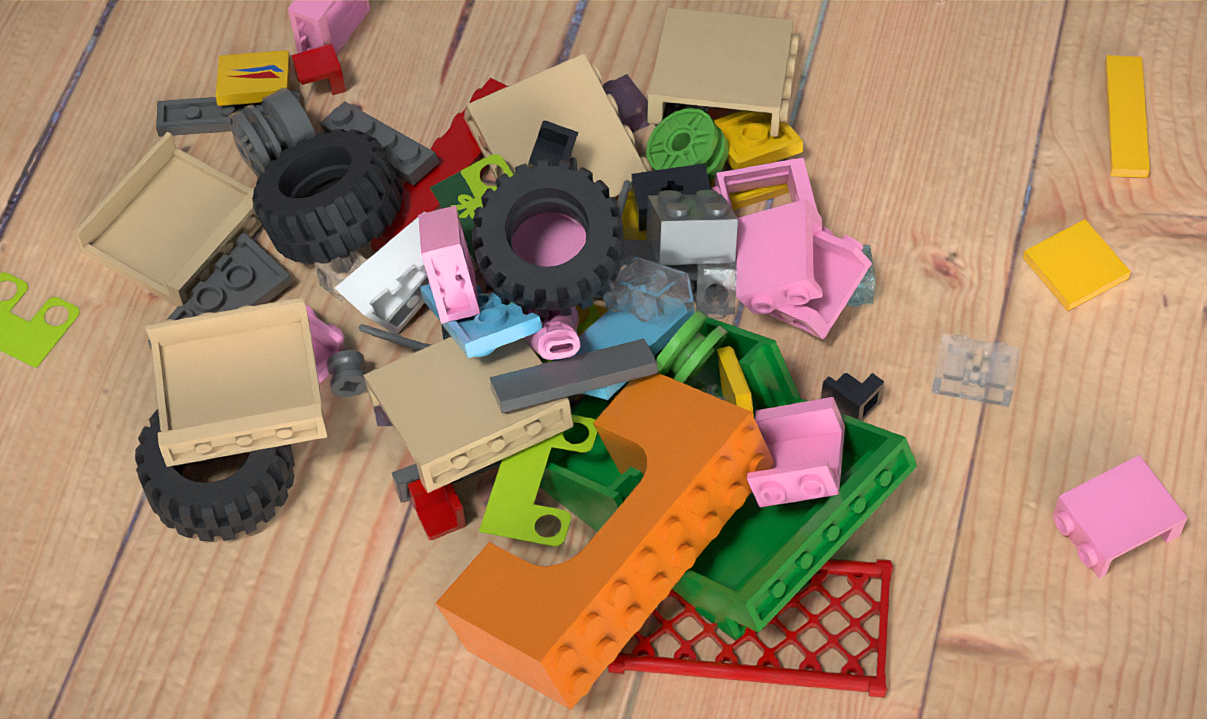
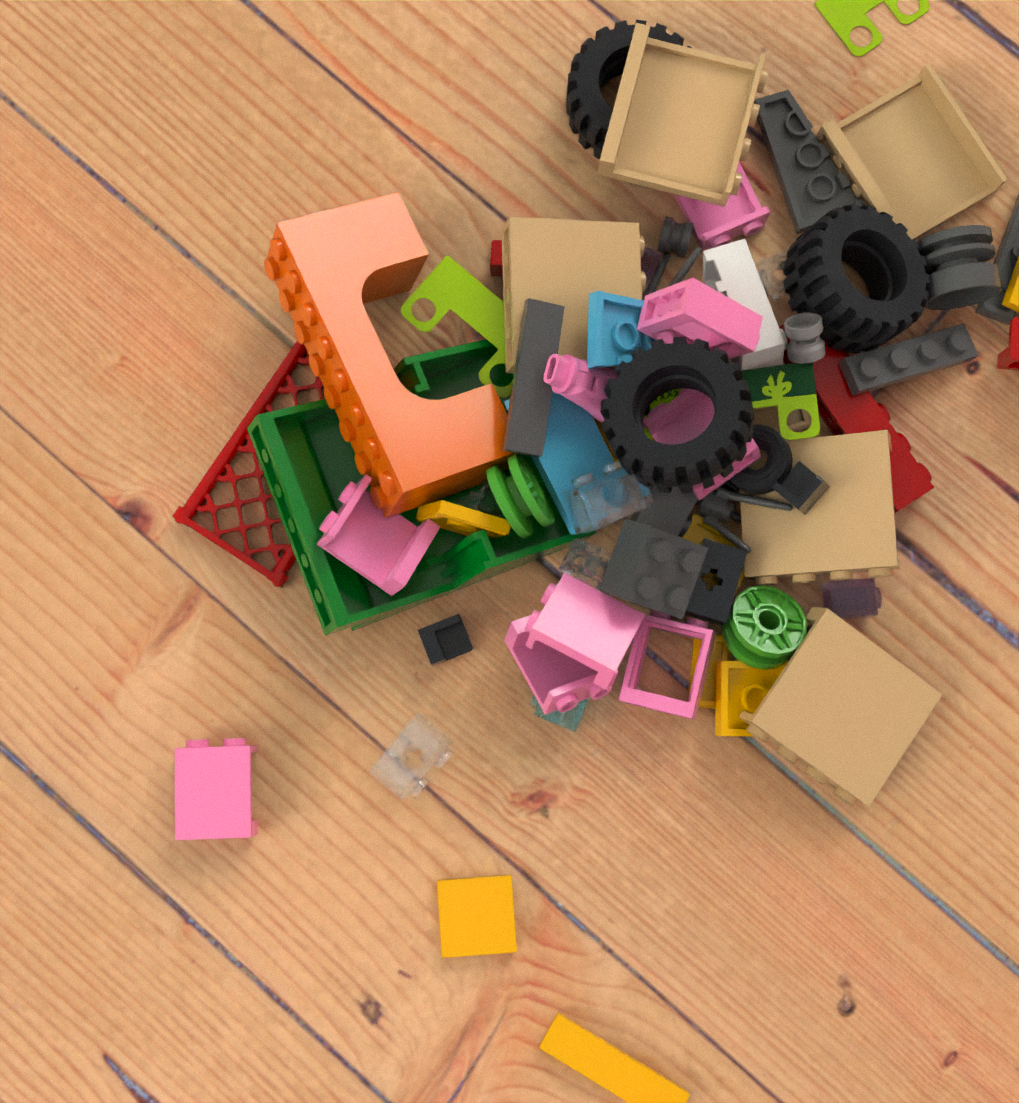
camera: 115 degrees right, 25 degrees up
(410, 199) = (804, 337): none -> light grey wheel

